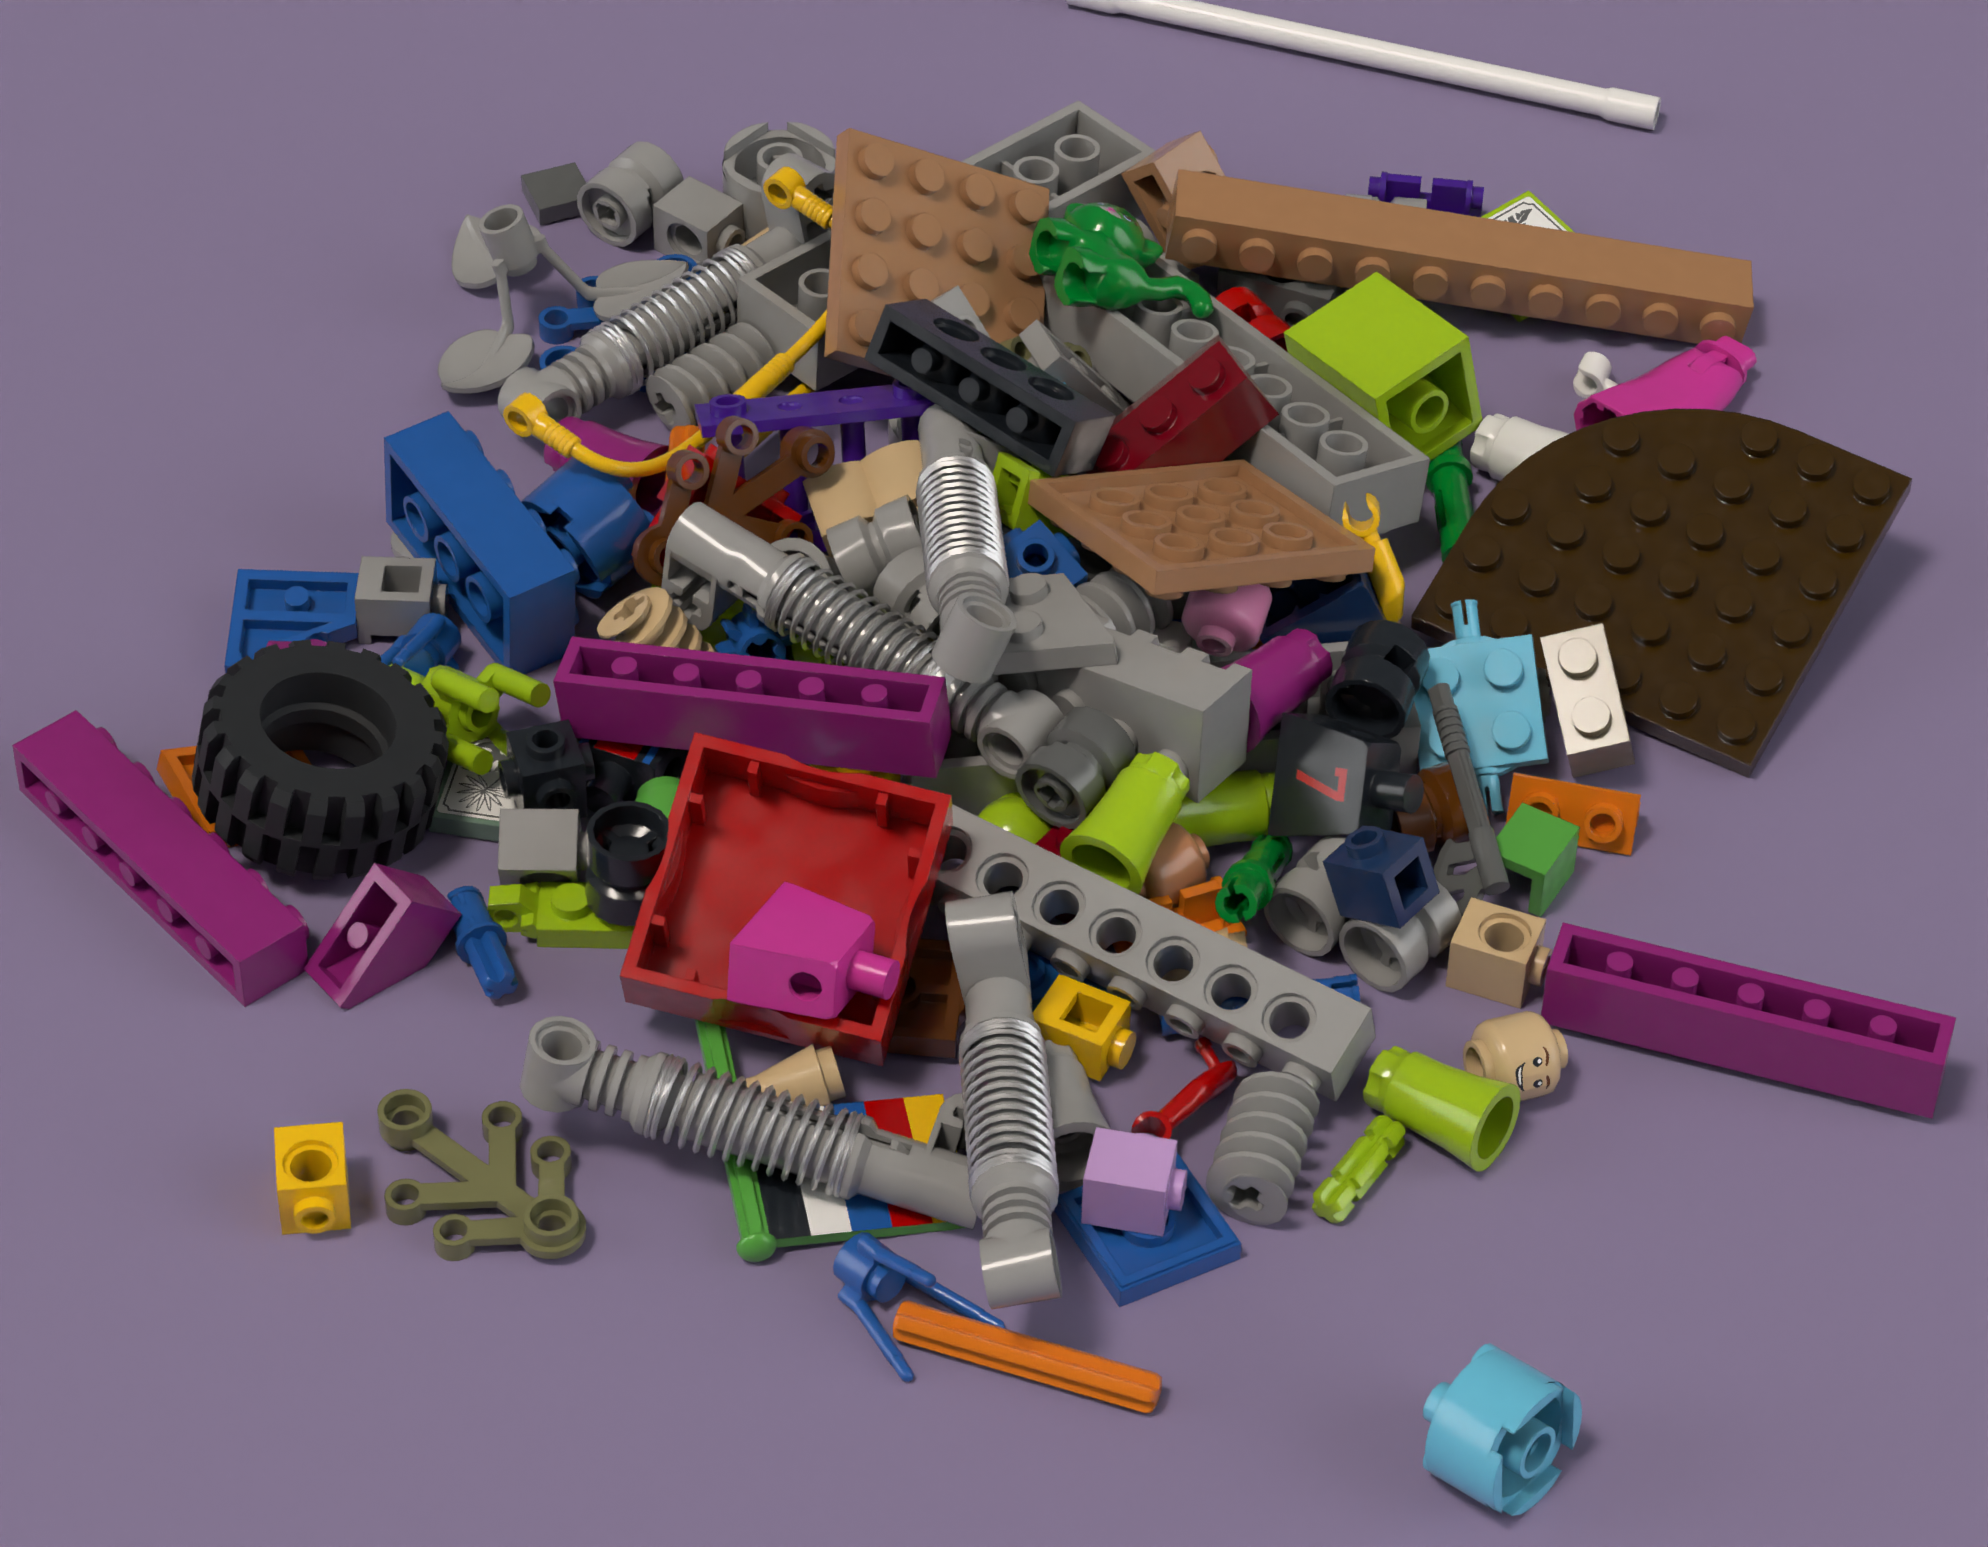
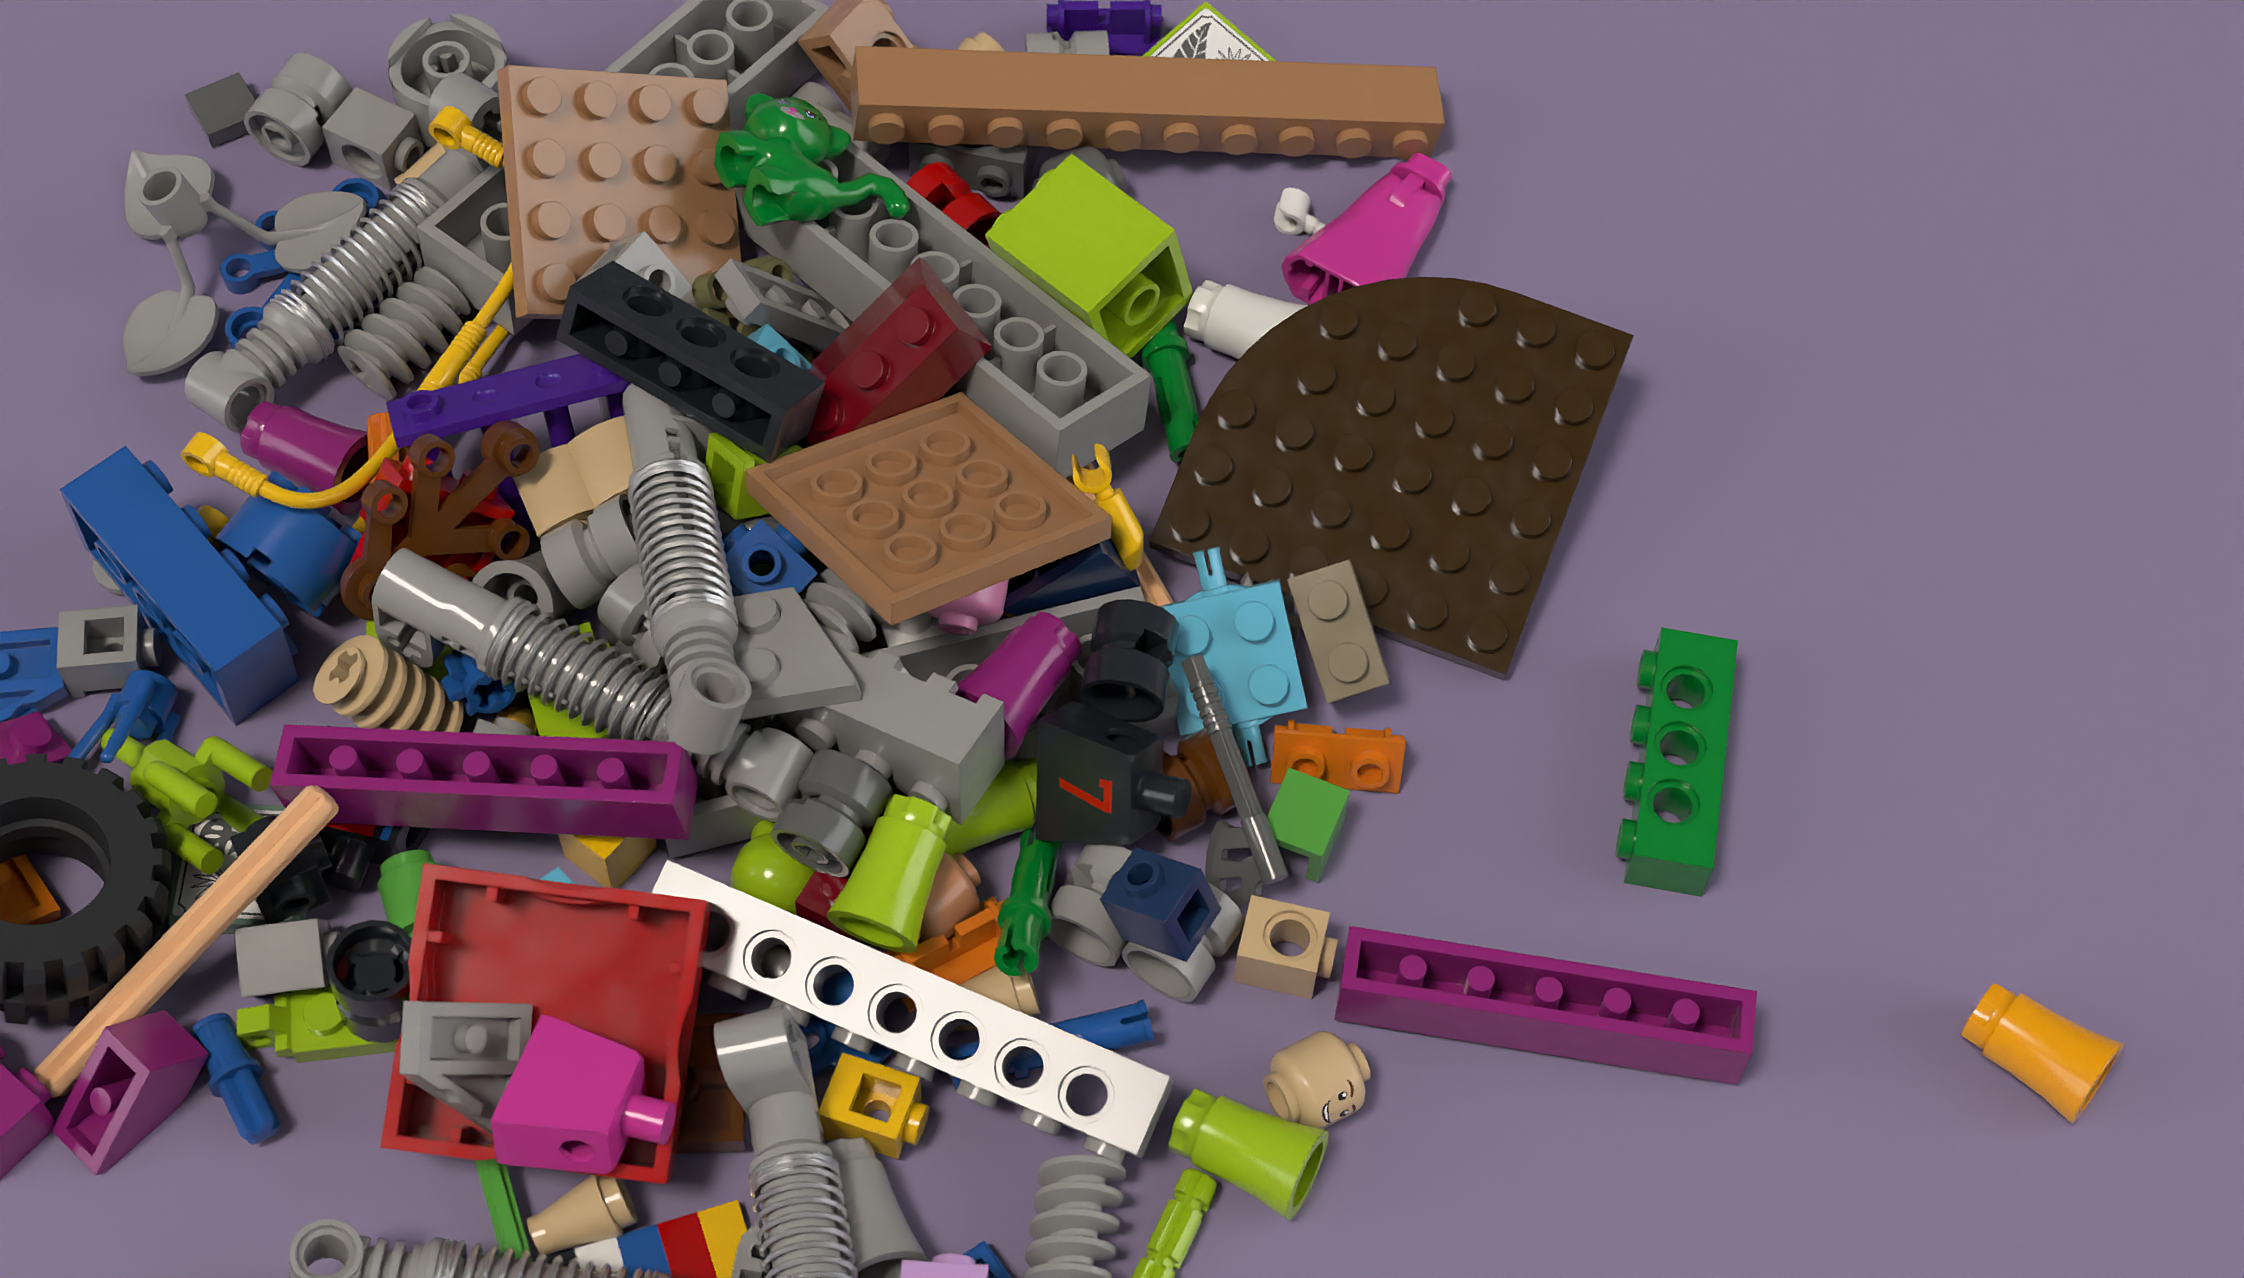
camera: 10 degrees left, 15 degrees up
(468, 798) = (191, 934): none -> light nougat axle
(705, 902) = (464, 1052): none -> light grey wing
(1191, 1097) = (995, 1175): red piece -> none
(1912, 850) = (1681, 853): none -> green brick

